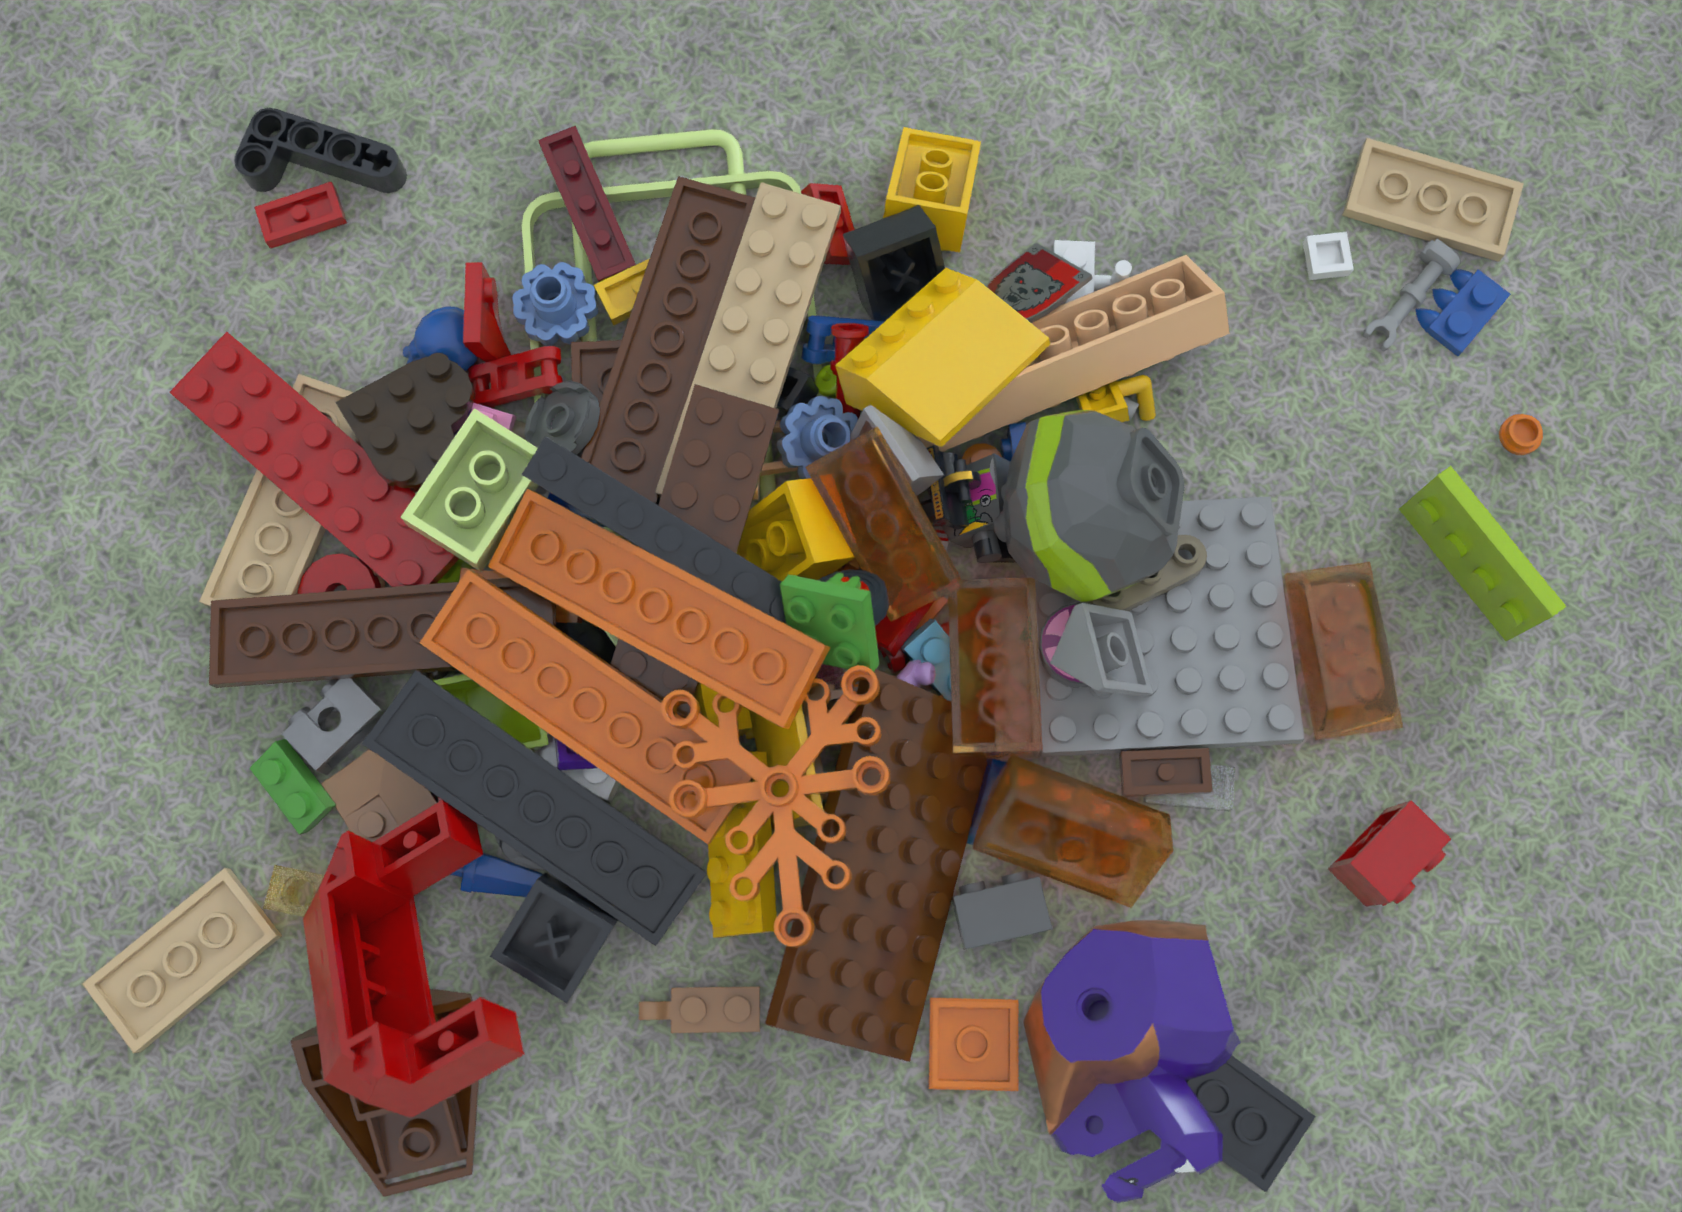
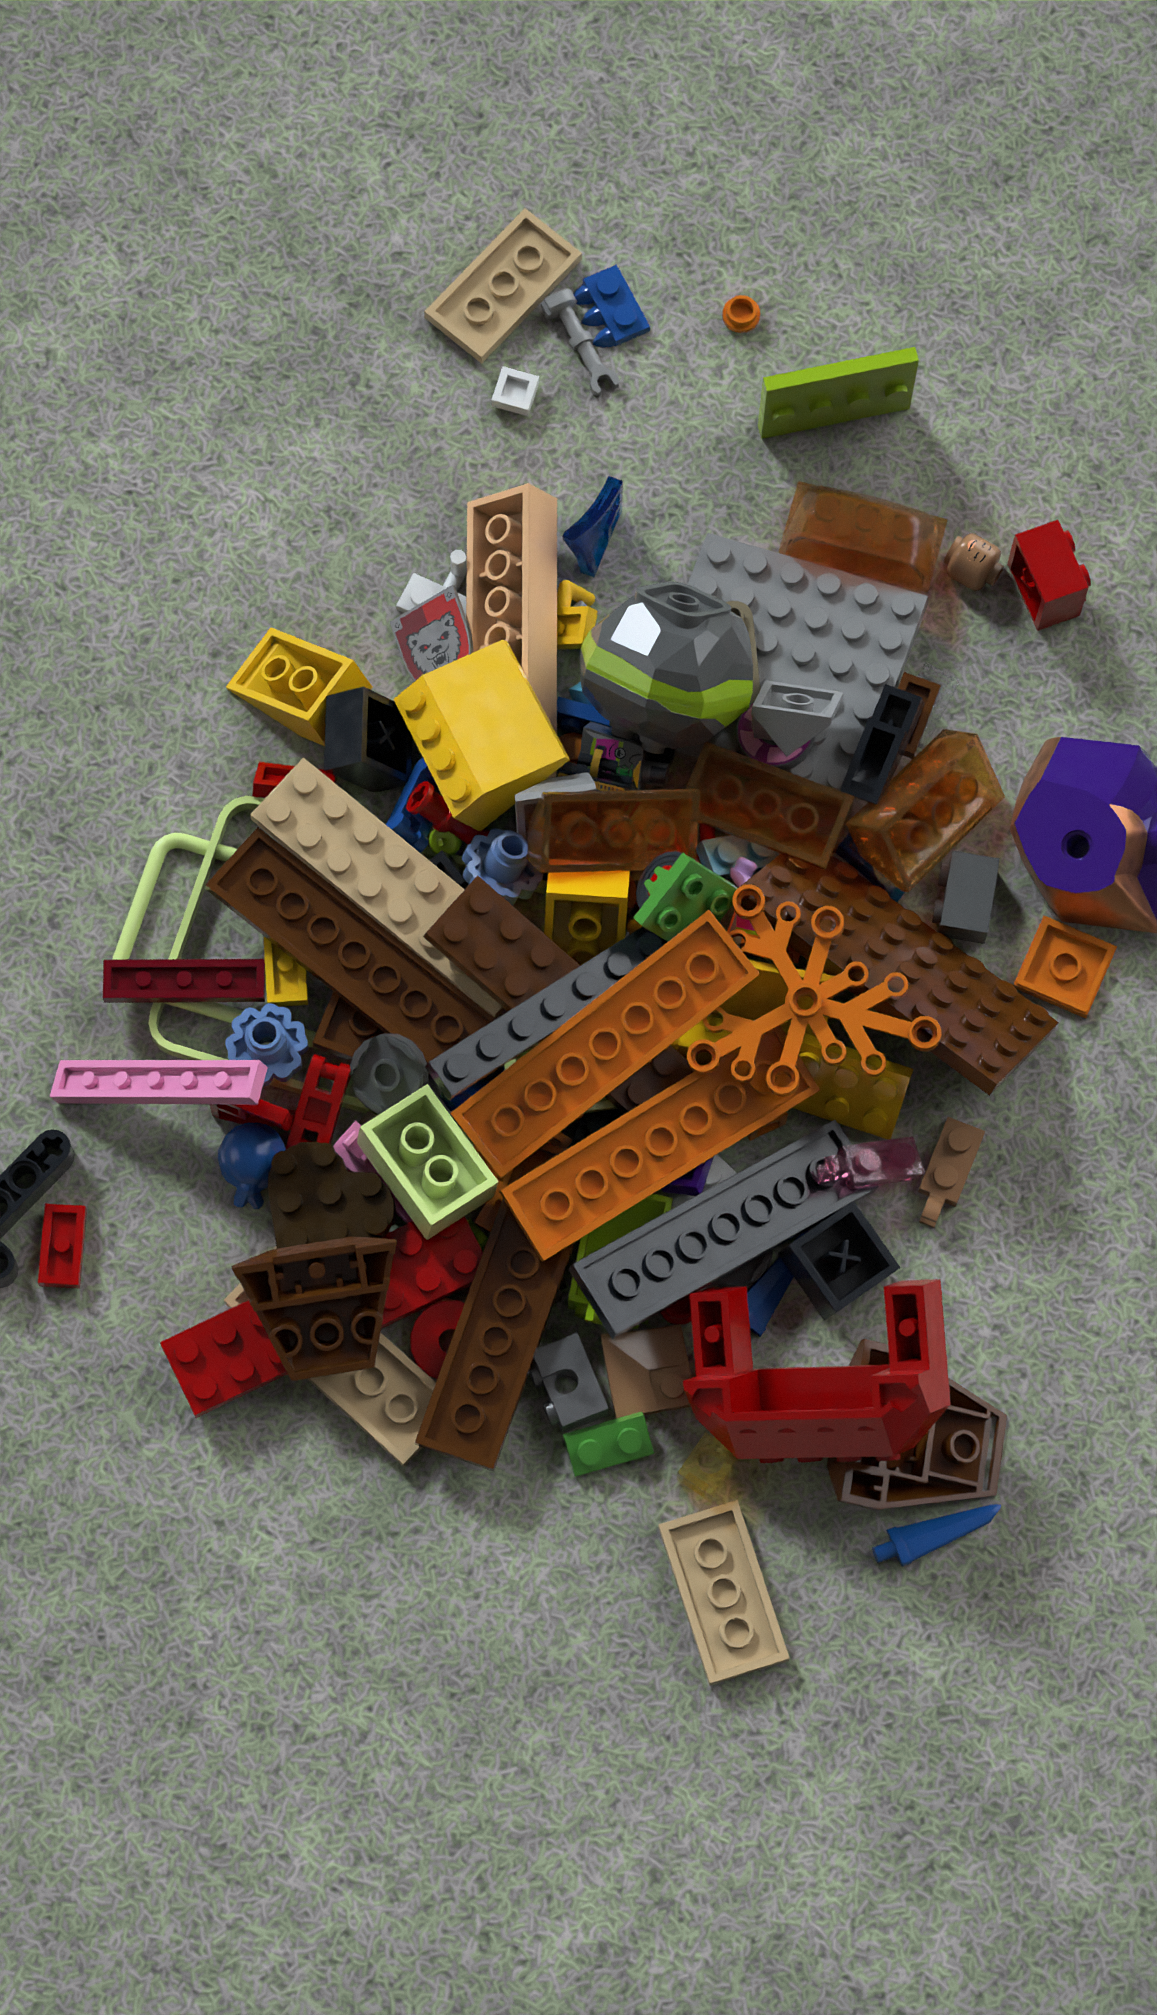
camera: 70 degrees left, 5 degrees down
(301, 448) = (321, 1302): none -> reddish brown wedge
(313, 1139) = (923, 1537): none -> blue bar
(466, 221) = (158, 1082): none -> bright pink plate
(675, 931) = (873, 1163): none -> clear pink plate
(1113, 757) = (882, 744): none -> black slope
(1219, 384) = (593, 531): none -> clear blue plate
(1368, 772) = (973, 562): none -> medium nougat head

